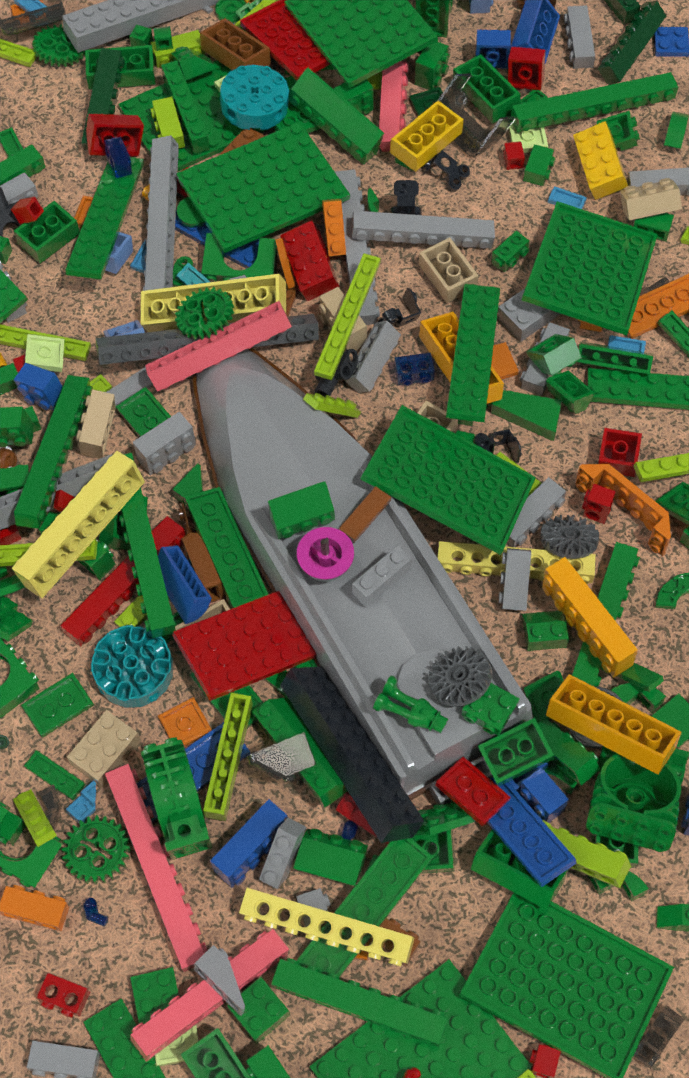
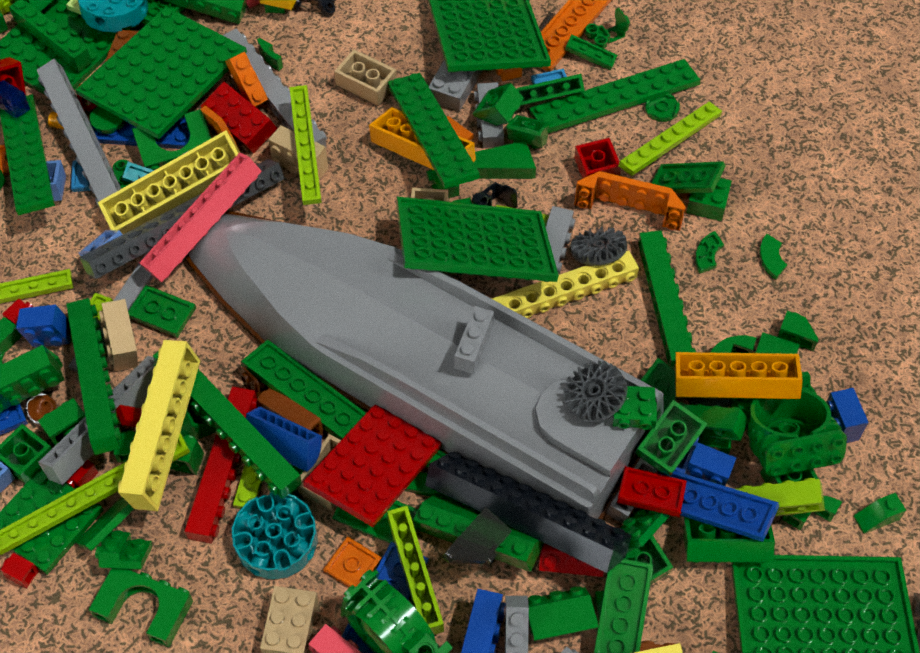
camera: 30 degrees left, 5 degrees down
(45, 352) = (31, 293): yellowish green plate -> none
(57, 705) = (219, 607): green tile -> none
(164, 443) = (195, 320): light grey brick -> none
(167, 120) = (38, 50): lime brick -> none
(190, 484) = (236, 352): green slope -> none
(217, 311) = (162, 202): green gear -> none
(301, 510) = (369, 315): green slope -> none
(325, 553) = (414, 342): dark pink piece -> none
(332, 405) = (334, 223): lime plate -> none
(343, 372) = (315, 211): black connector -> none
(349, 830) = (558, 582): clear blue arm -> none
(365, 514) = (425, 296): dark orange tile -> none
(373, 356) = (341, 174): light grey brick -> none
(394, 315) = (341, 131): black piece -> none
(406, 192) = (297, 28): black piece -> none
(413, 365) = (383, 169): clear blue brick -> none
(421, 712) = (578, 440): green piece -> none
(422, 229) = (322, 53): light grey brick -> none
(510, 251) = (409, 42): green brick -> none
(515, 579) = (576, 300): light grey brick -> none
(545, 630) = (623, 332): green slope -> none
(589, 617) = (660, 300): light orange brick -> none
(598, 503) = (606, 209): red brick -> none
(641, 677) = (721, 331): green tile -> none

